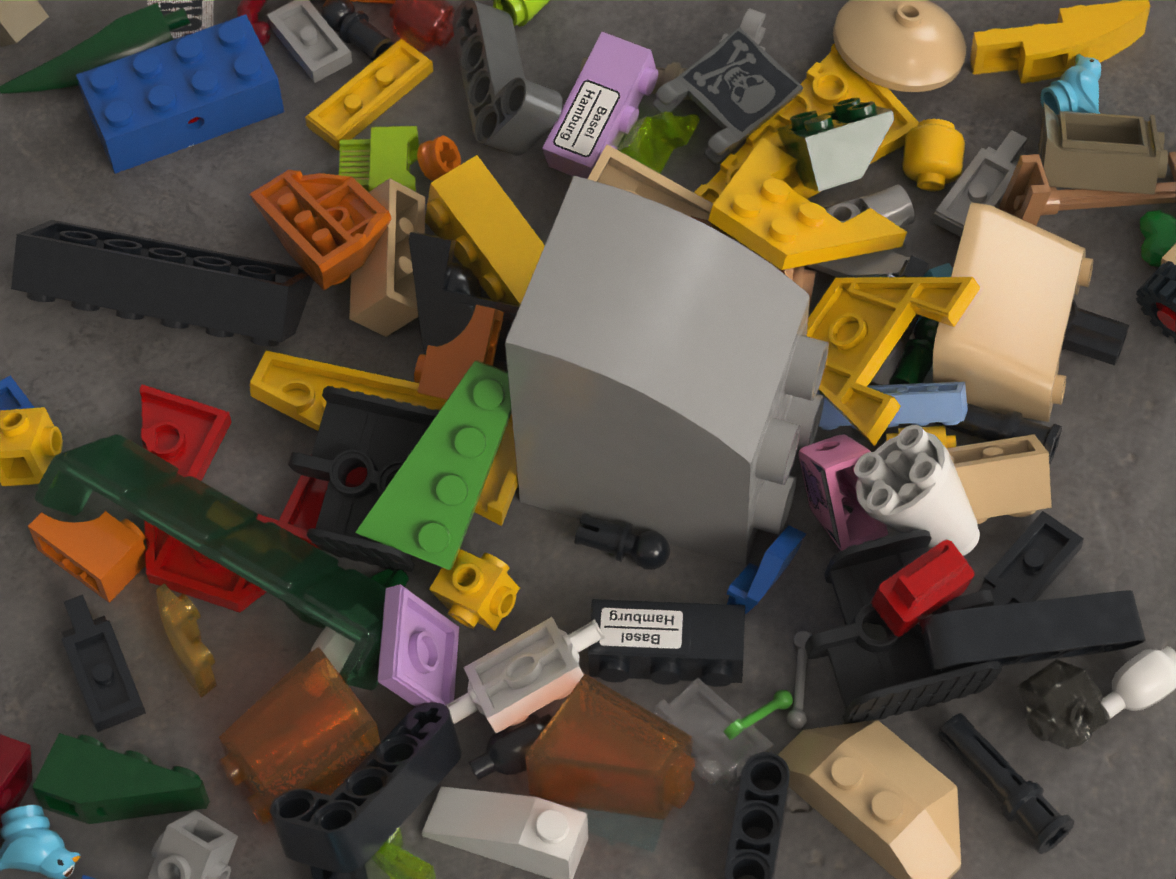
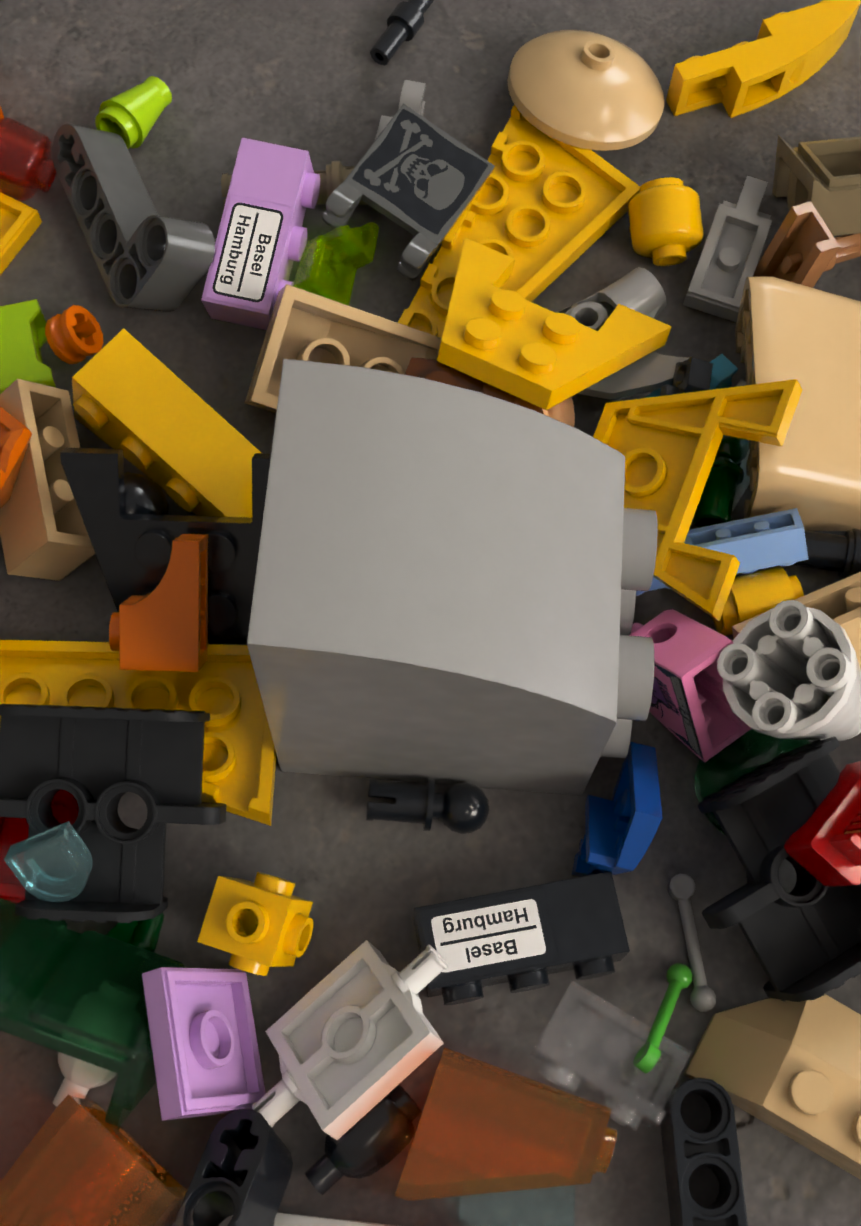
camera: 20 degrees left, 10 degrees up
(340, 506) = (52, 863): none -> clear light blue tile
(442, 479) = (185, 801): bright green wing -> none
(837, 143) = (558, 229): slope -> none
(1076, 89) = (802, 113): medium azure animal -> none

